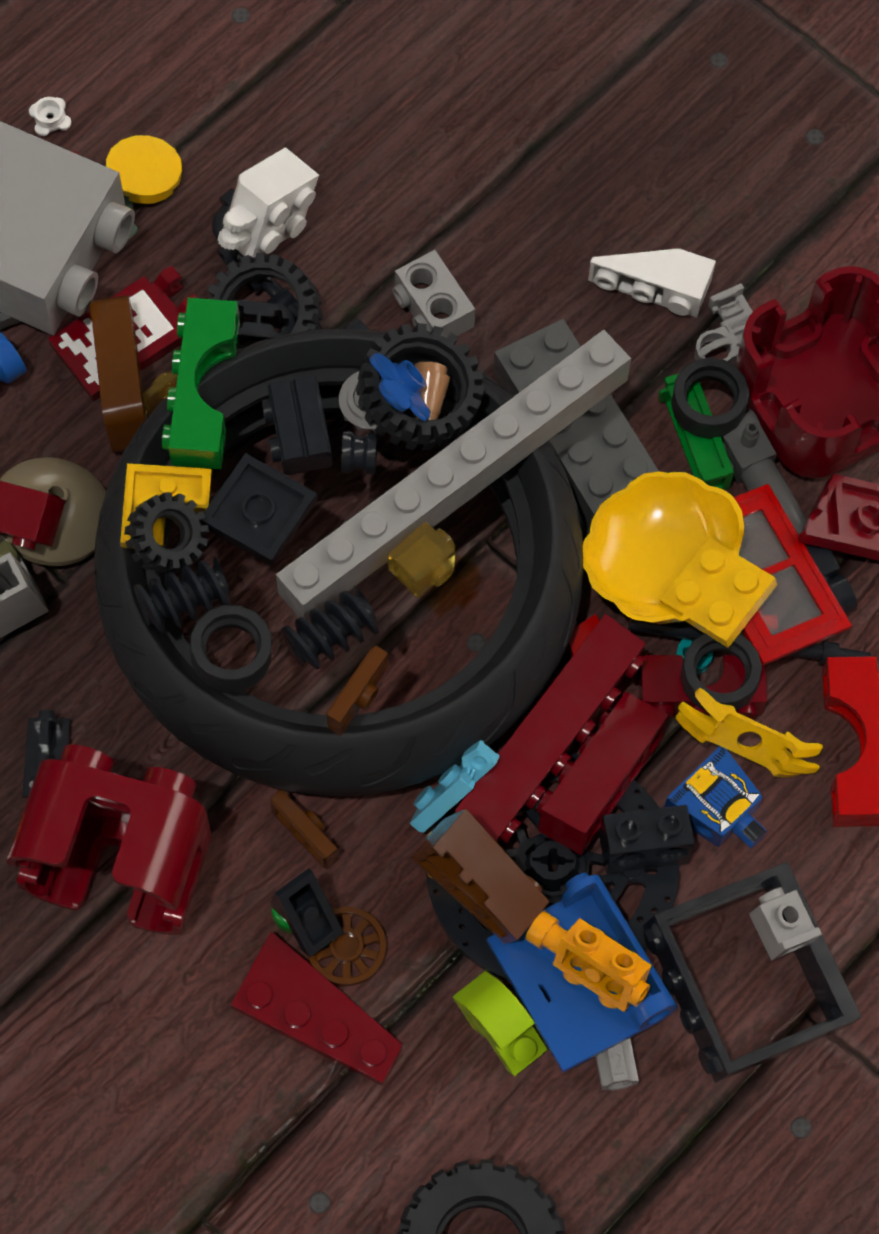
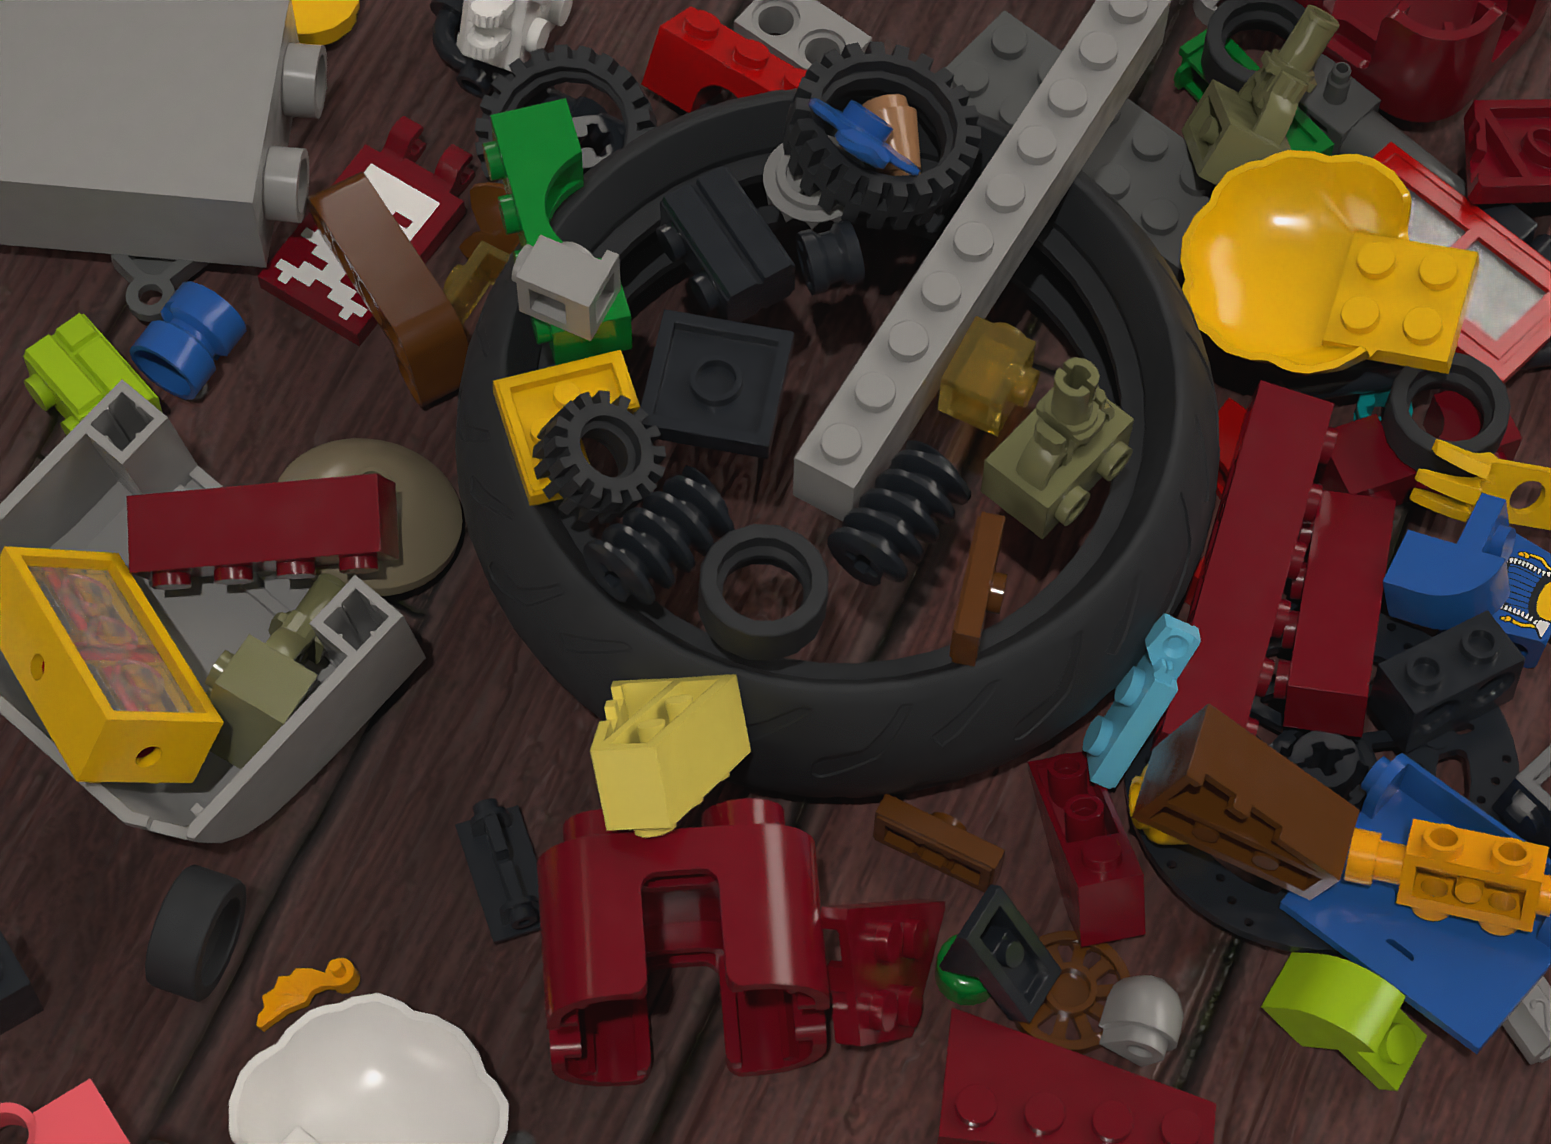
camera: 20 degrees left, 5 degrees down
(134, 723) = (666, 748): none -> light yellow wedge
(184, 422) = (566, 285): none -> light grey brick
(230, 892) = (882, 967): none -> dark red wing
(366, 288) = (700, 56): none -> red arch
(379, 978) = (1141, 1019): none -> light grey piece
(390, 865) = (1089, 851): none -> dark red slope
(441, 623) = (1059, 451): none -> olive brick
(674, 444) = (1252, 123): none -> olive brick
(678, 779) = (1450, 582): none -> blue brick

